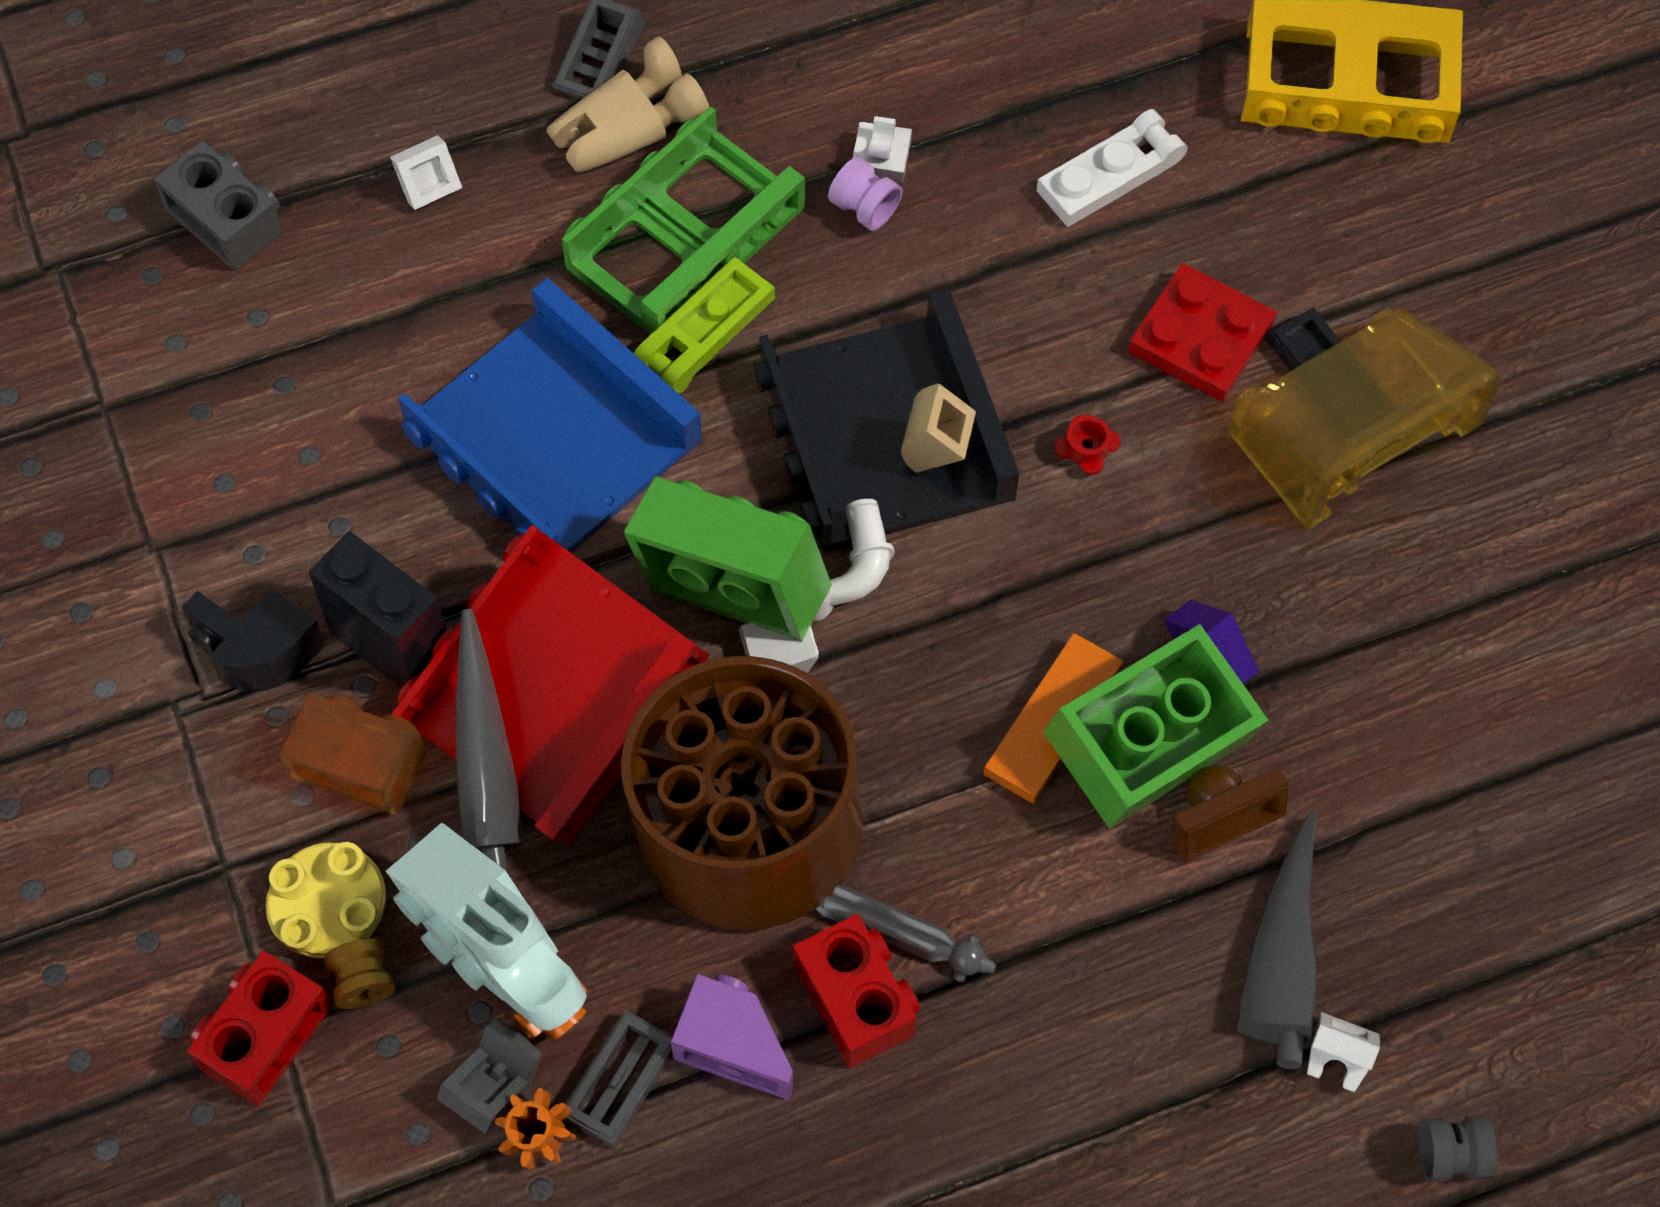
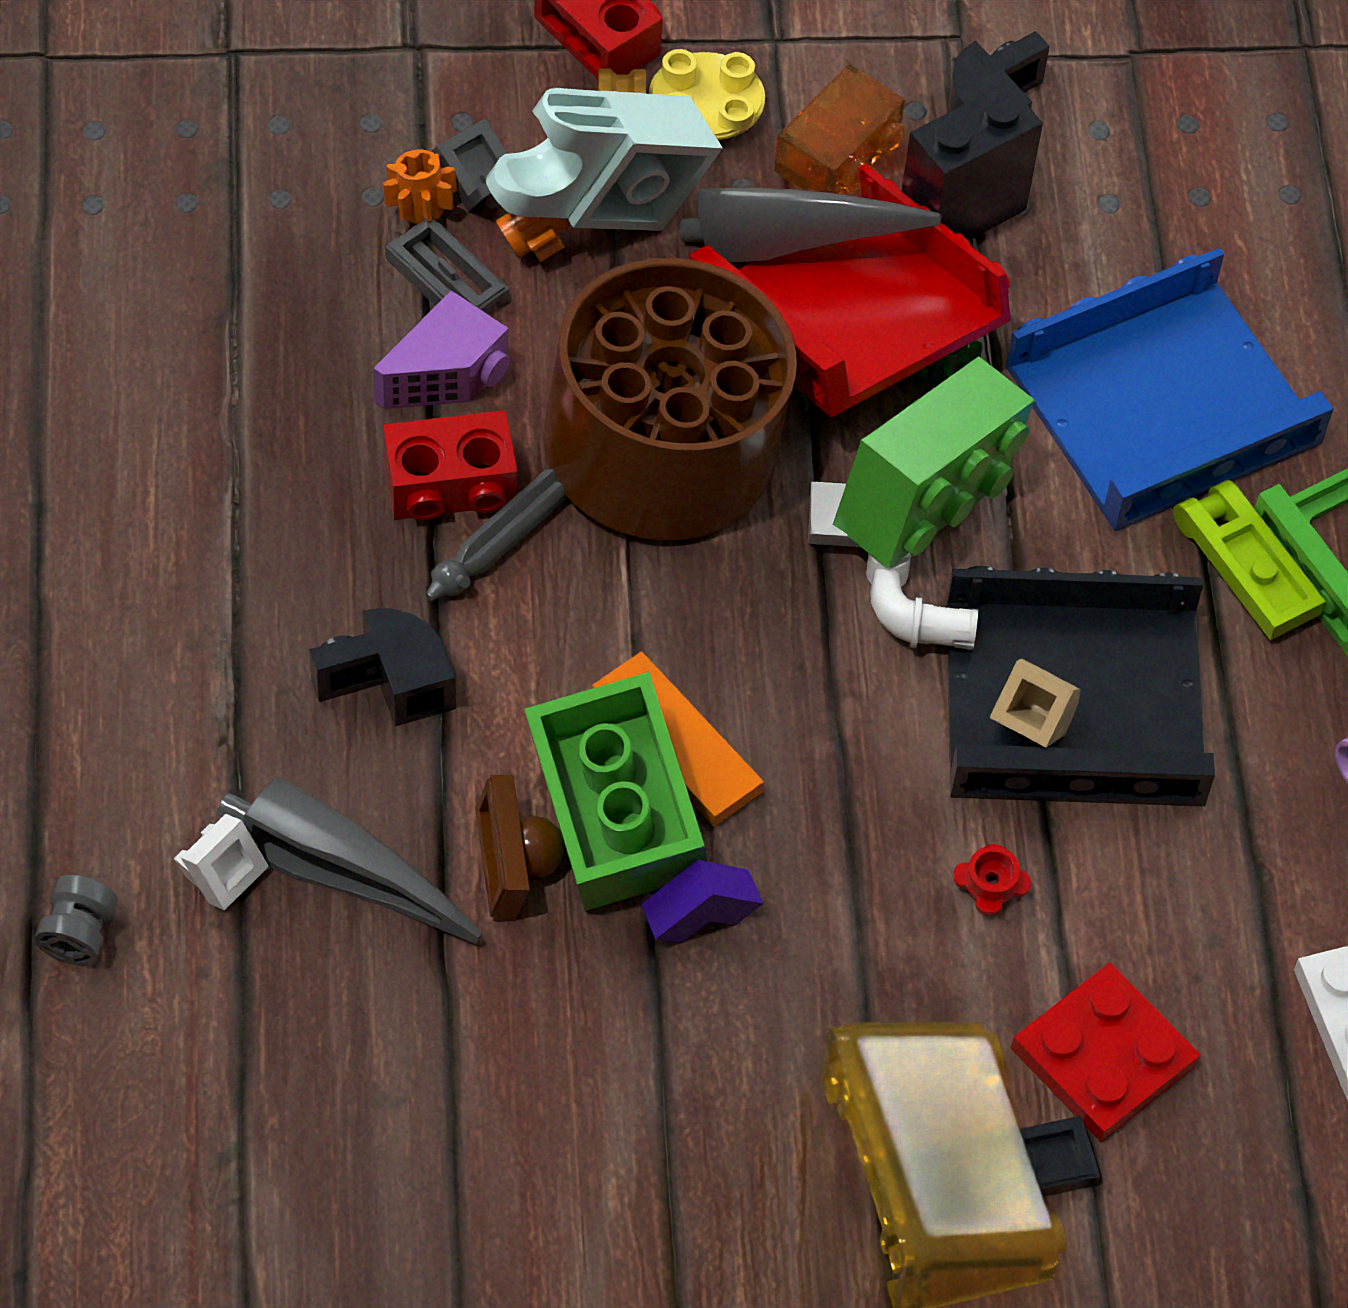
camera: 105 degrees right, 5 degrees down
(1076, 970) = (392, 652): none -> black brick

